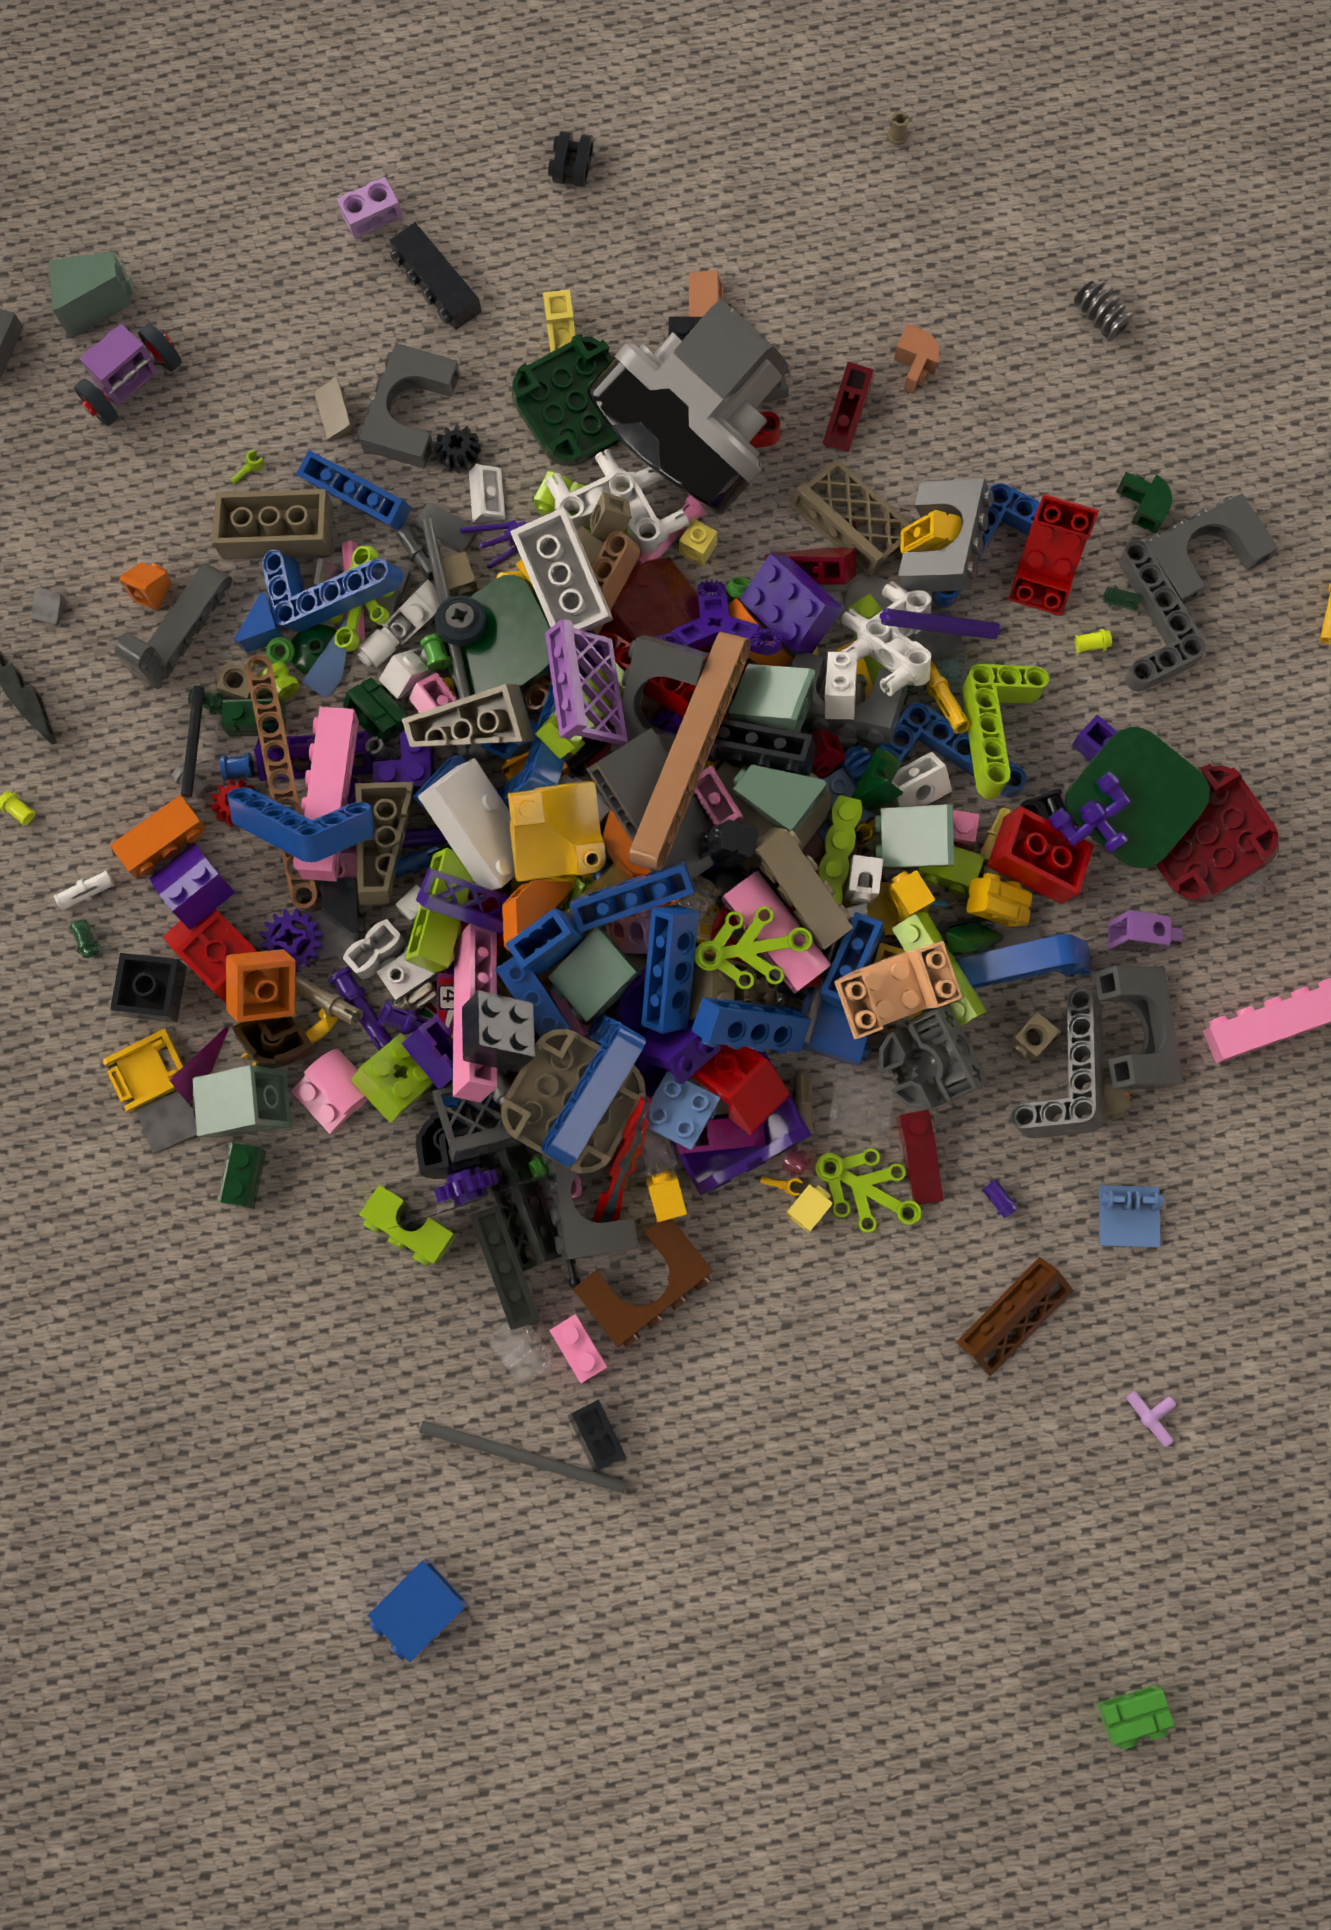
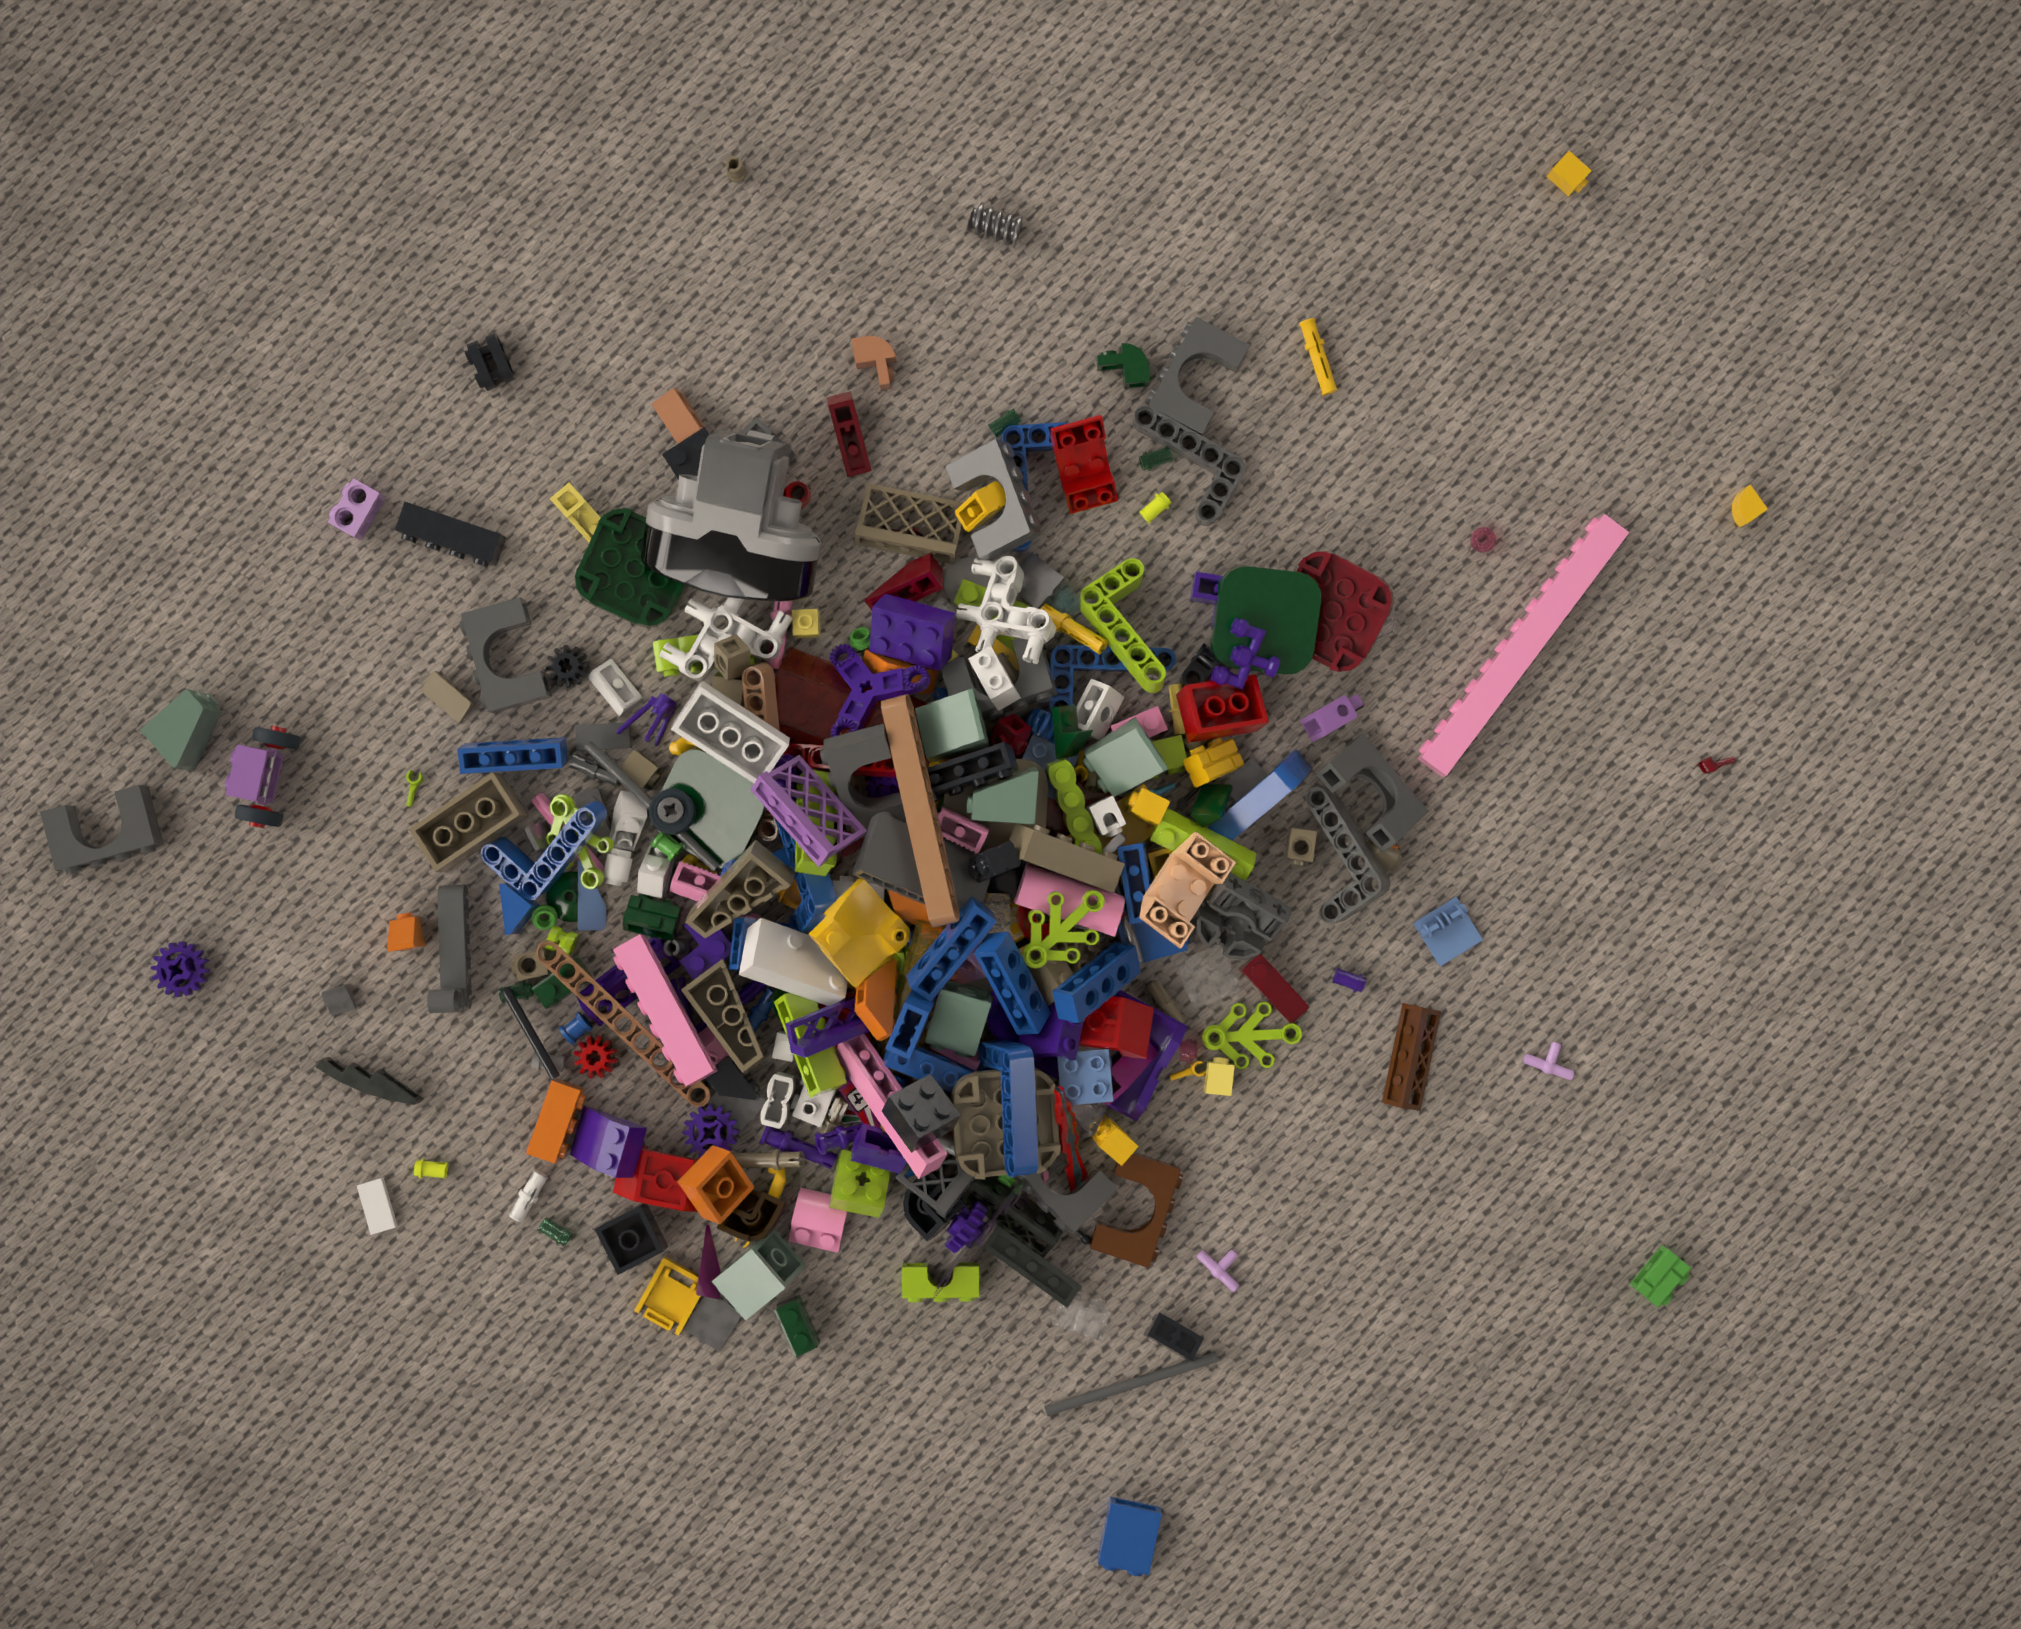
camera: 40 degrees left, 10 degrees up
(297, 834) = (678, 1064): blue beam -> none
(578, 1348) = (1121, 1285): bright pink brick -> none
(685, 1400) = (1218, 1270): none -> lavender piece
(940, 623) = (1034, 575): dark purple axle -> none
(1009, 479) = (1008, 419): none -> clear green pin

